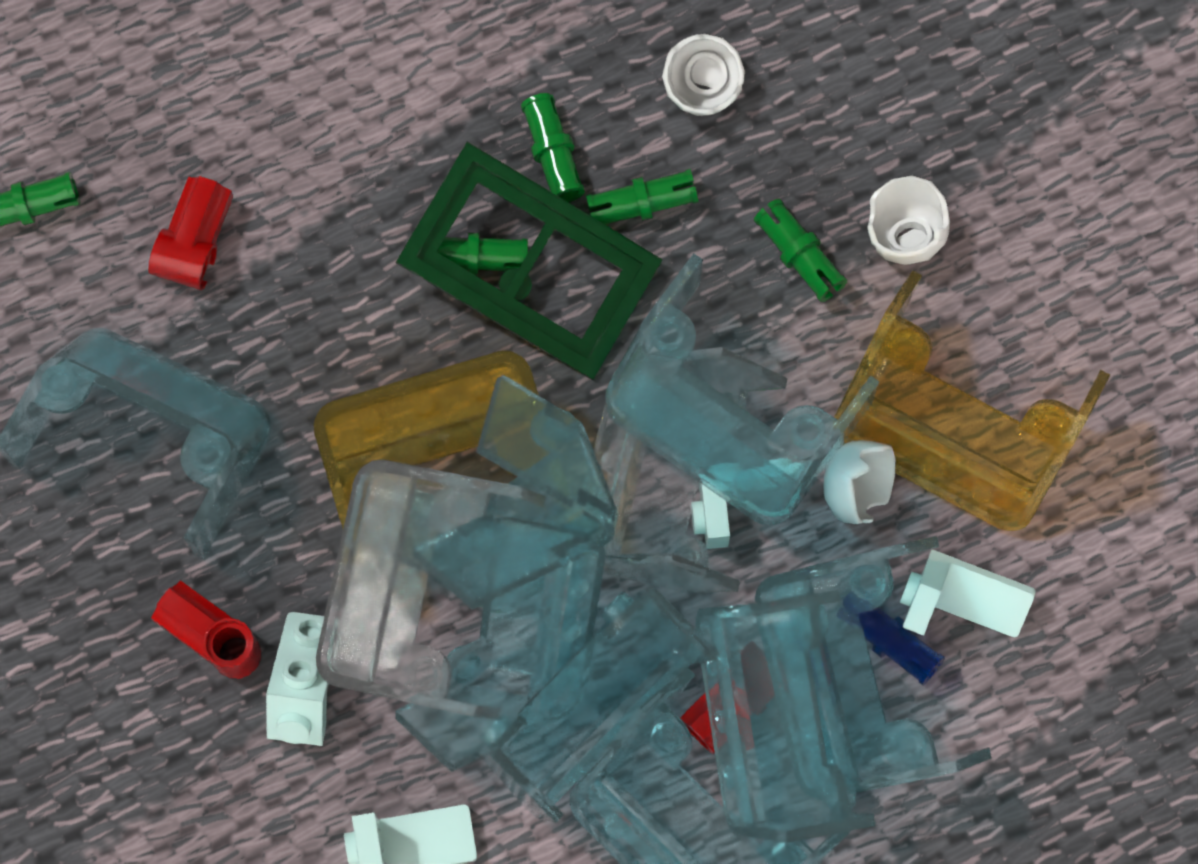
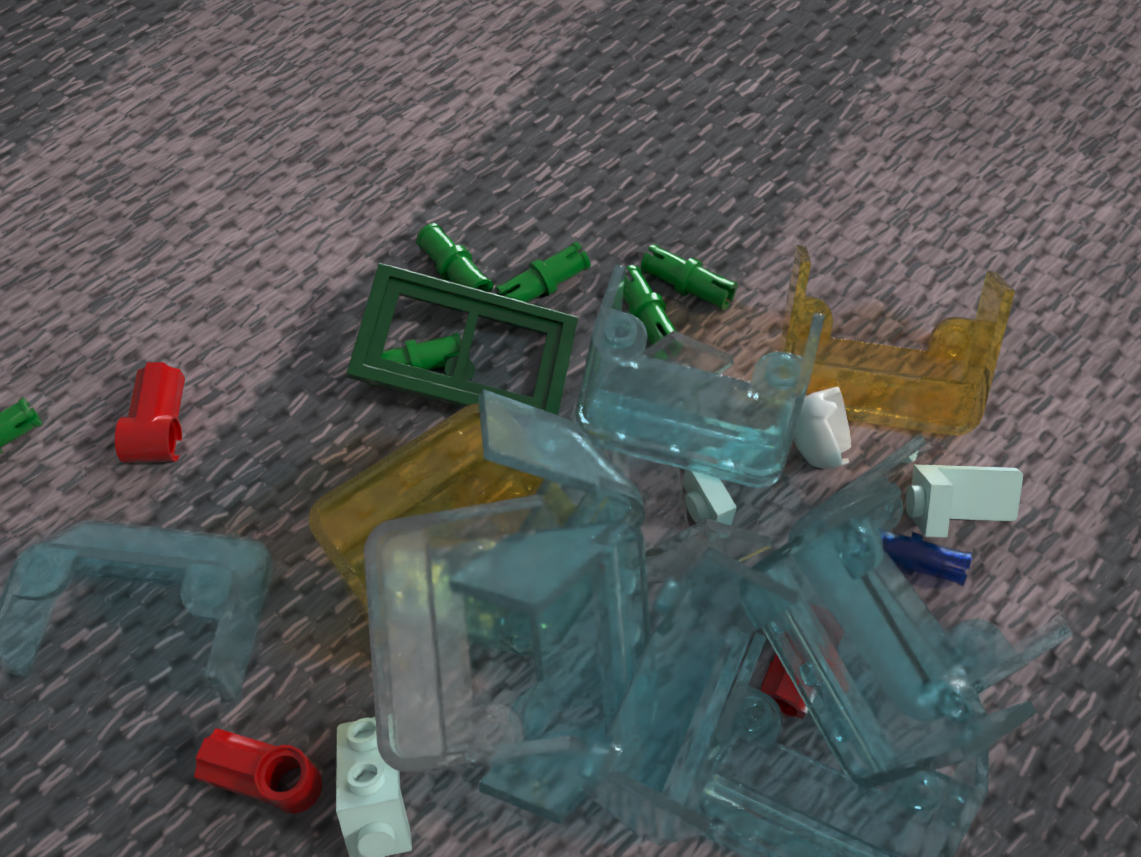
camera: 20 degrees left, 15 degrees down
(707, 62) = (557, 176): white hair -> none
(738, 276) = (646, 305): none -> green pin
(906, 205) = (769, 218): white hair -> none

